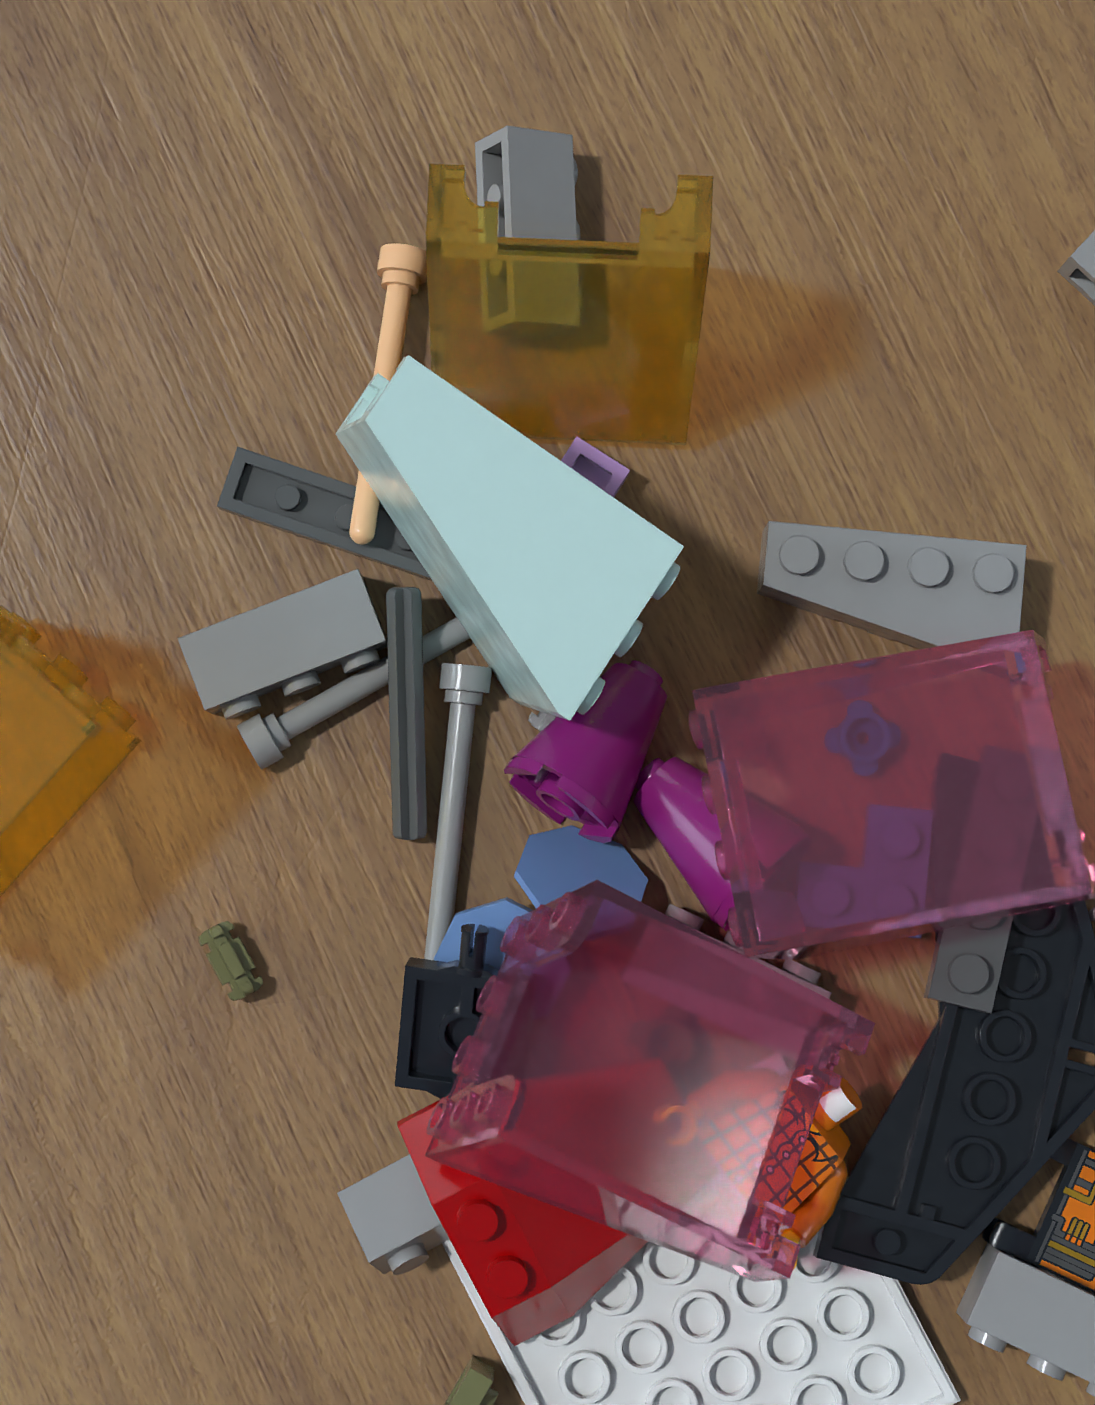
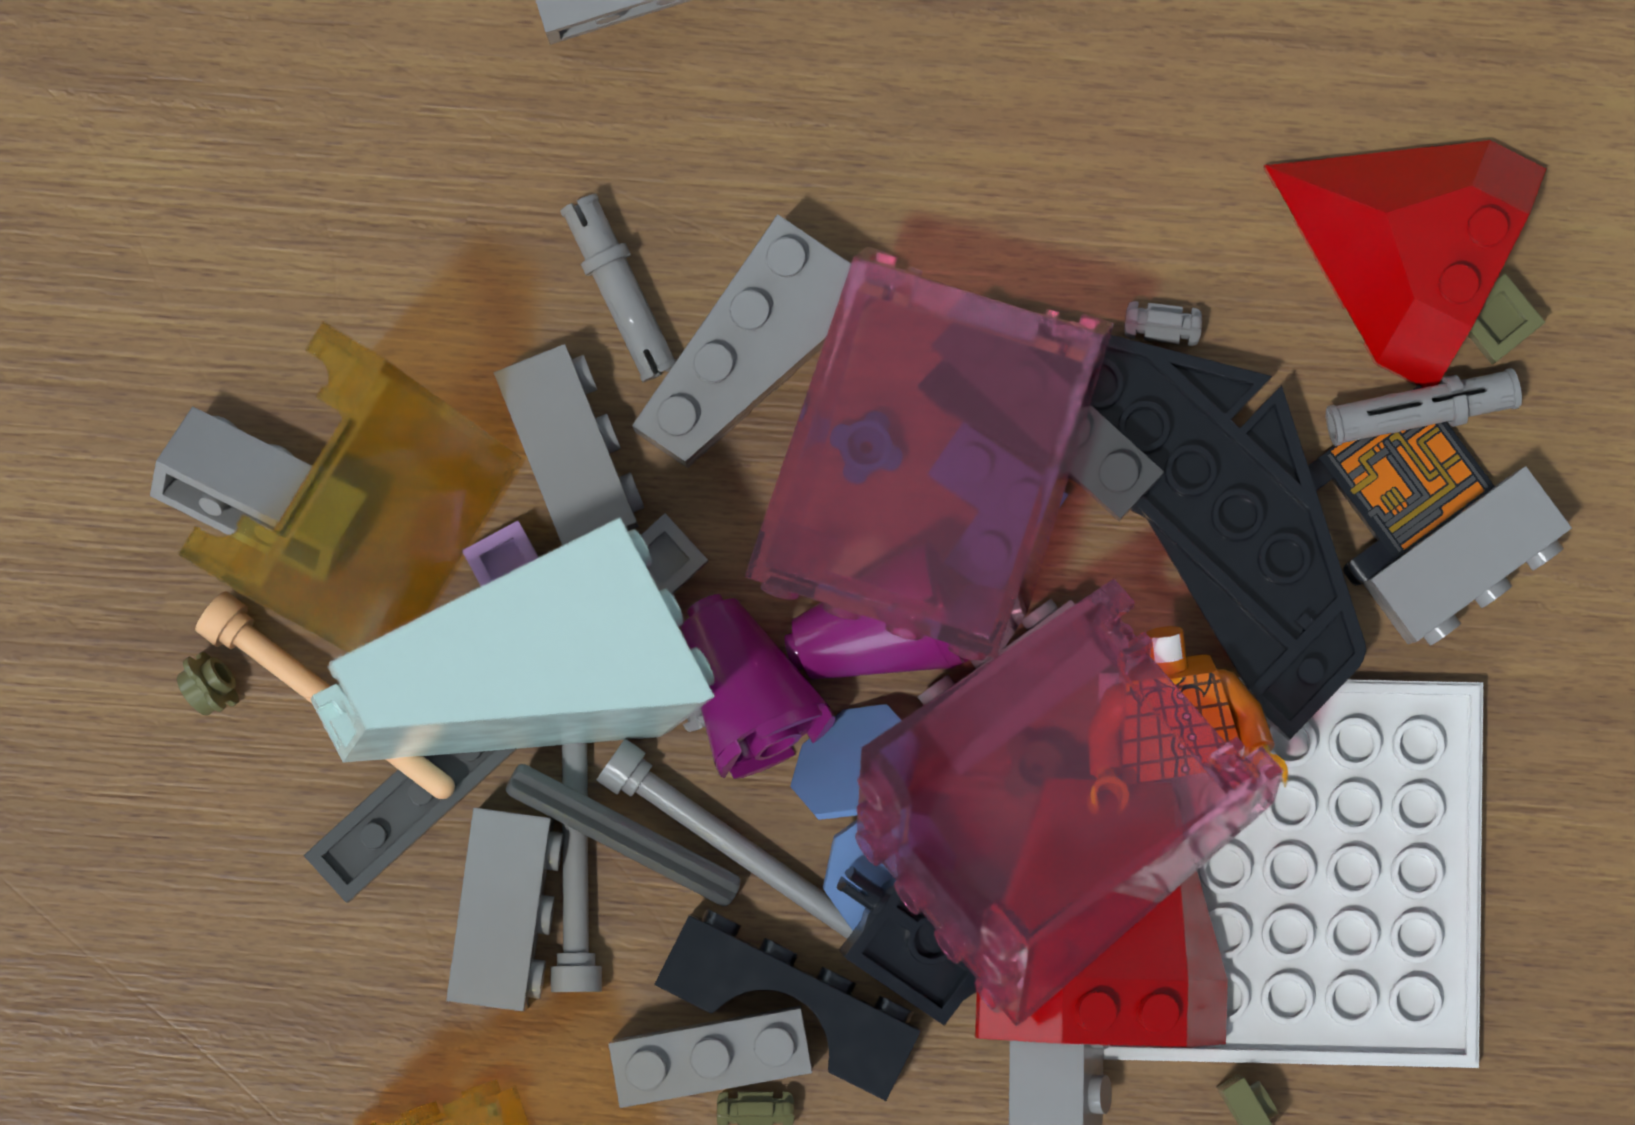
camera: 60 degrees left, 0 degrees up
(255, 895) = (710, 1056): none -> light grey brick
(340, 283) = (207, 684): none -> olive plate
(344, 1022) = (864, 1039): none -> black arch
(672, 618) = (672, 555): none -> light grey plate
(723, 472) = (568, 444): none -> light grey brick
(895, 425) = (618, 286): none -> light grey pin

